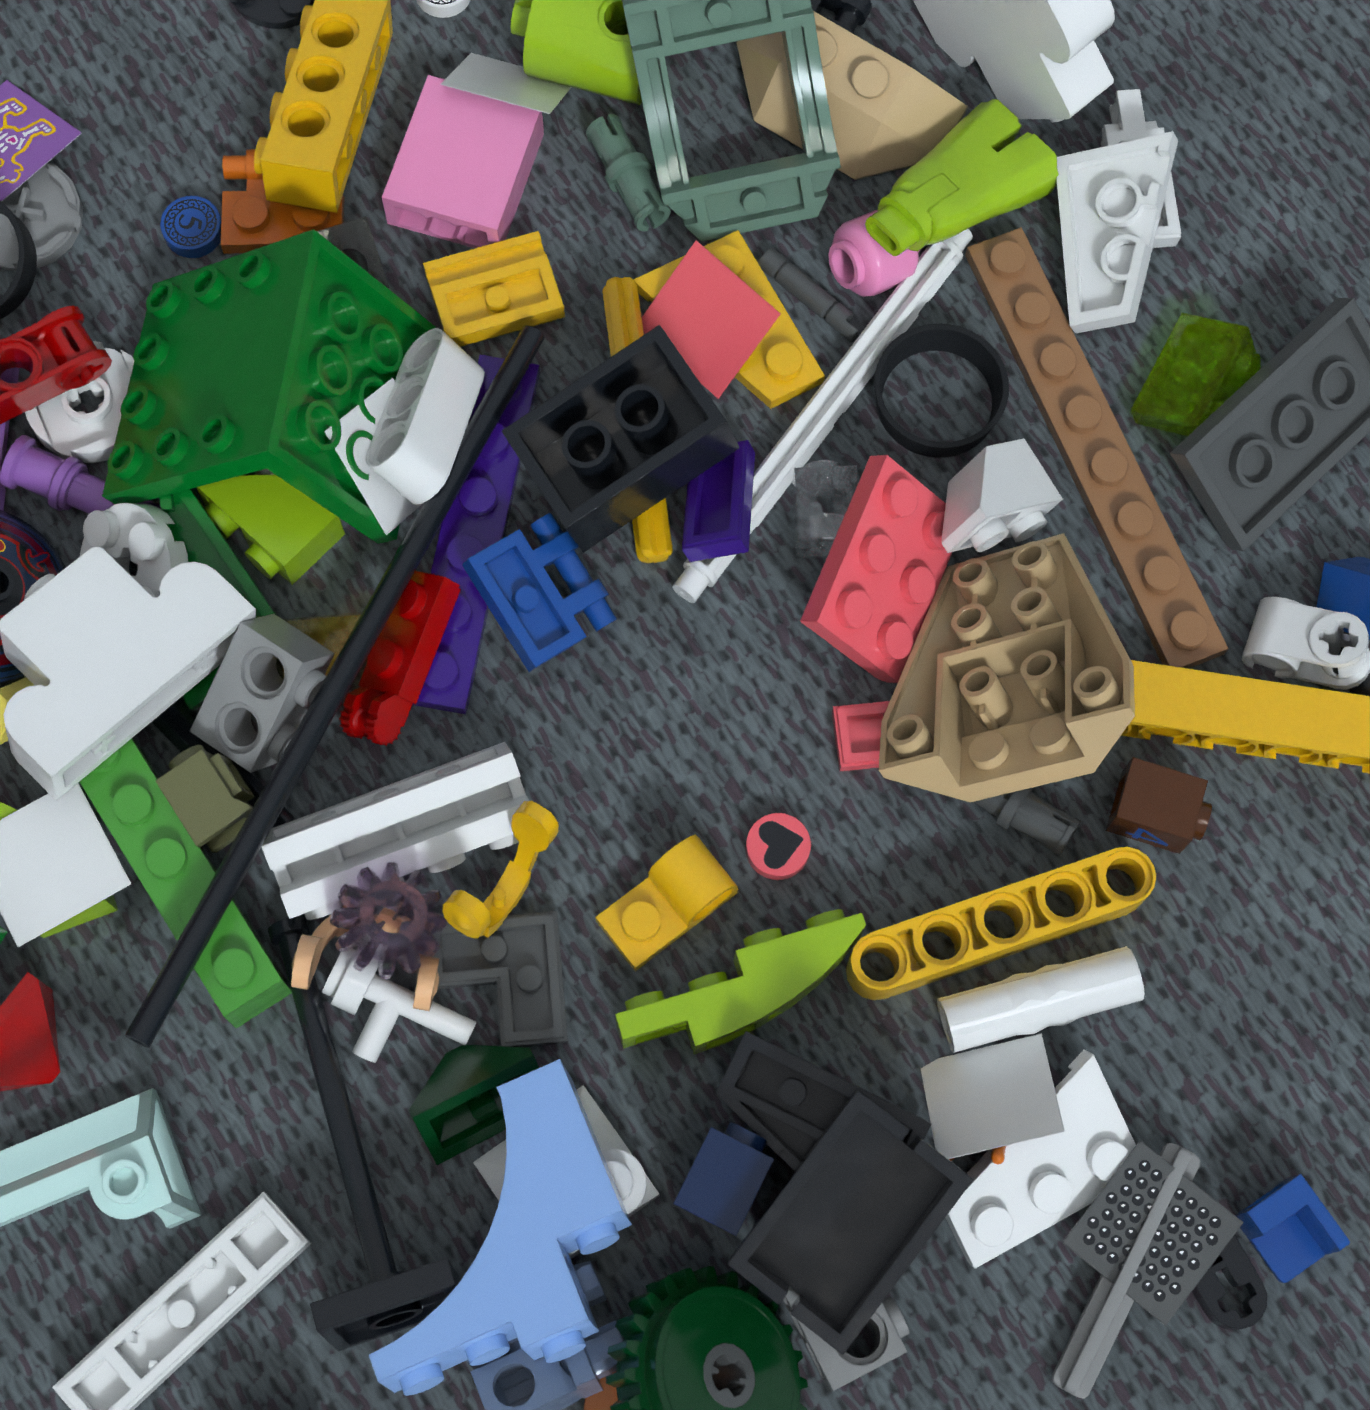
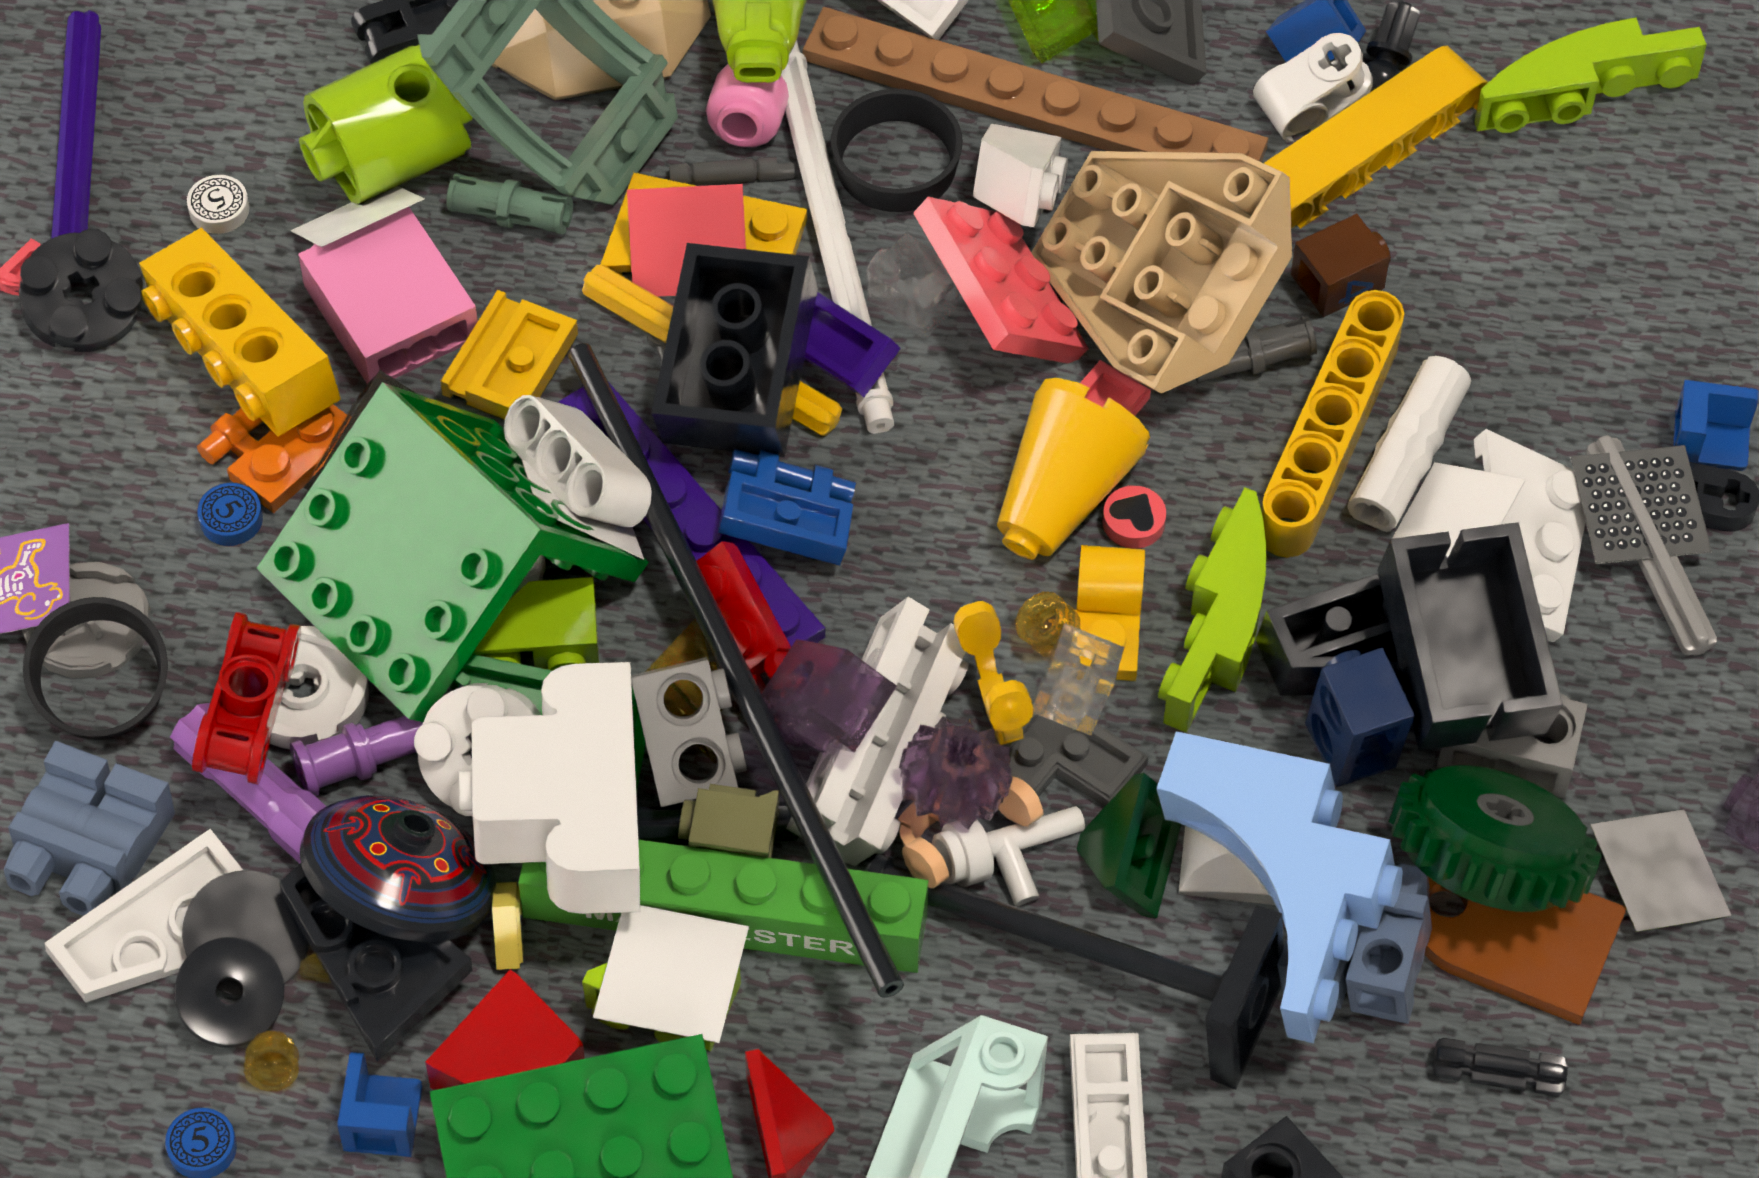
camera: 45 degrees left, 15 degrees down
(361, 771) = (825, 696): none -> clear purple brick
(565, 937) = (1077, 692): none -> clear brick
(617, 883) = (1035, 613): none -> clear yellow bush
(755, 762) = (1066, 465): none -> yellow cone

